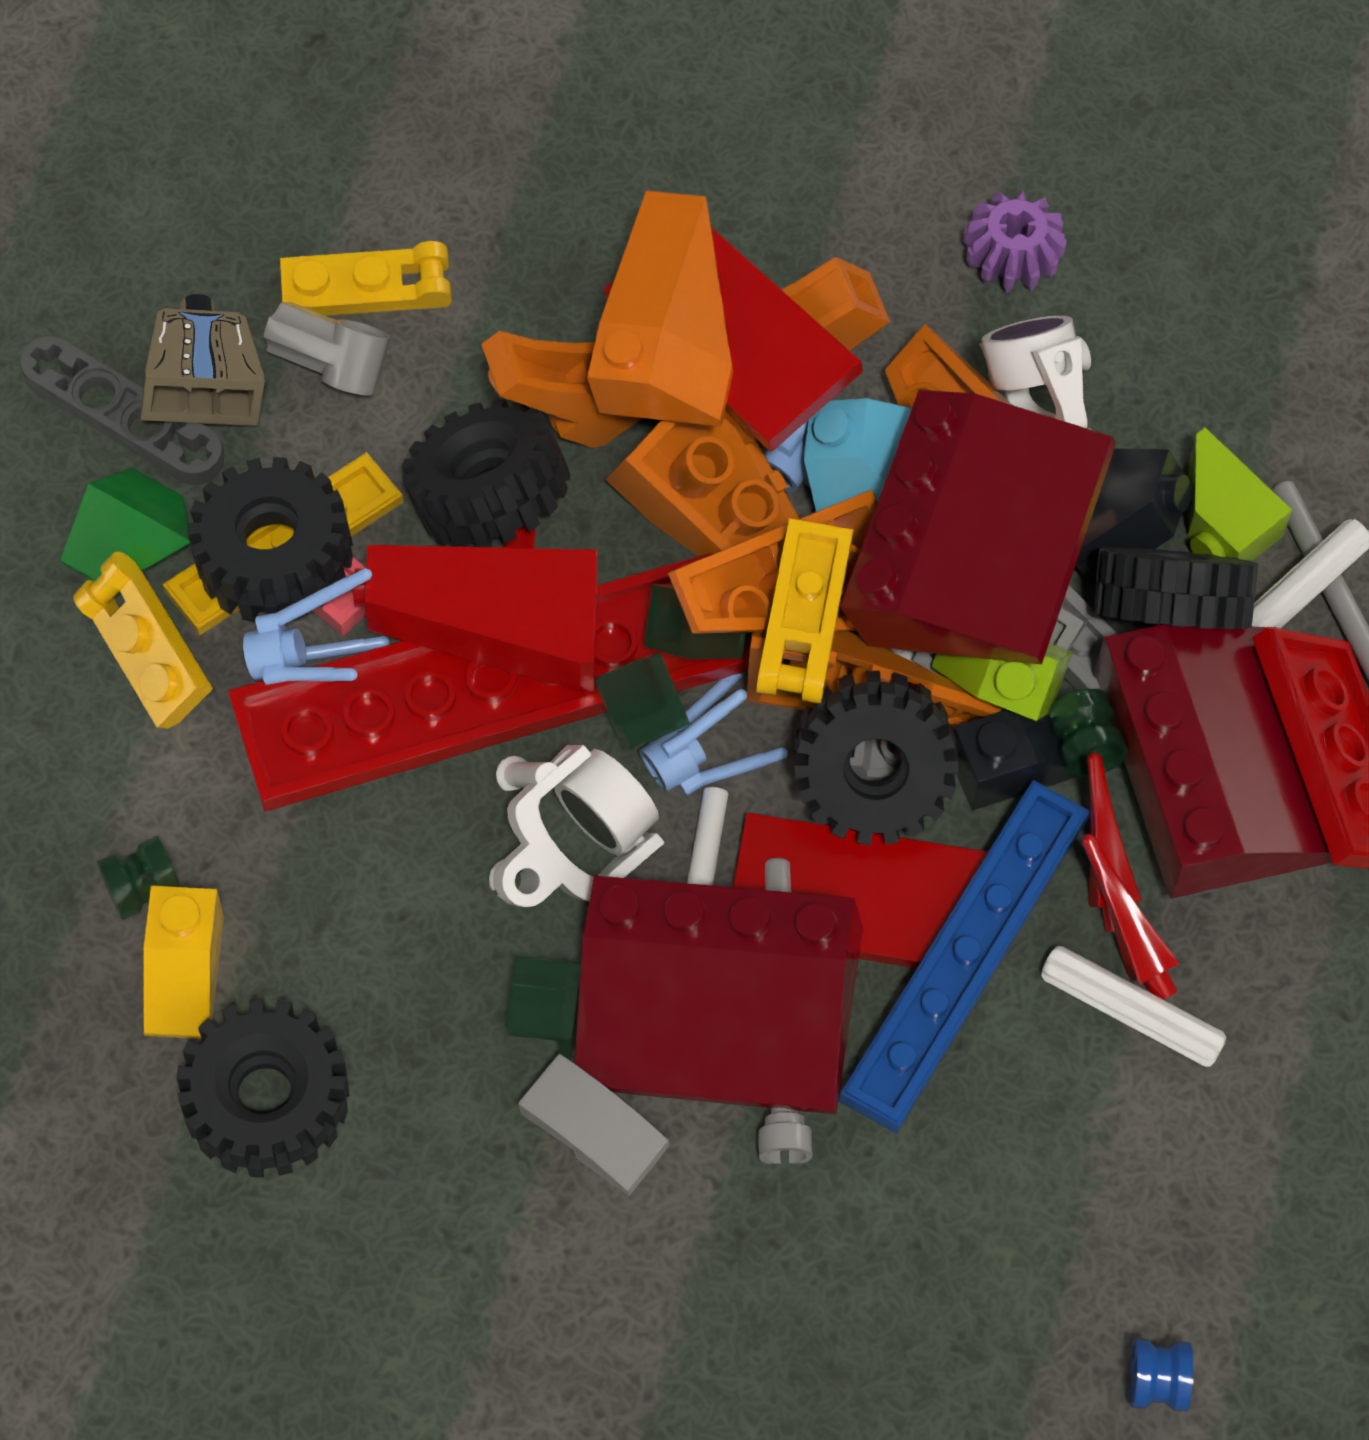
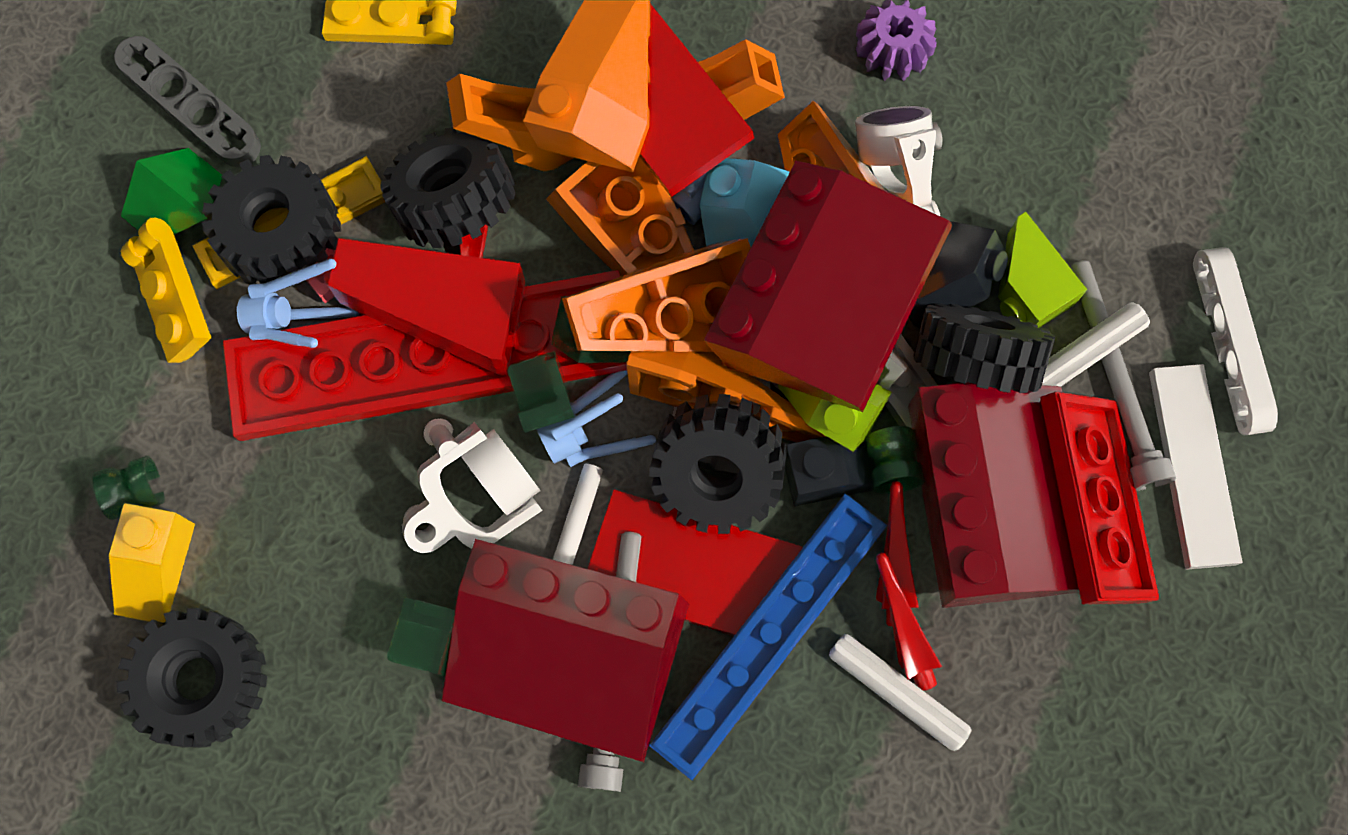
camera: 10 degrees right, 10 degrees up
(202, 367) = (242, 73): dark tan torso -> none
(341, 350) = (357, 70): light grey piece -> none
(594, 1124) = (450, 741): light grey slope -> none
(805, 608) = (673, 339): yellow plate -> none

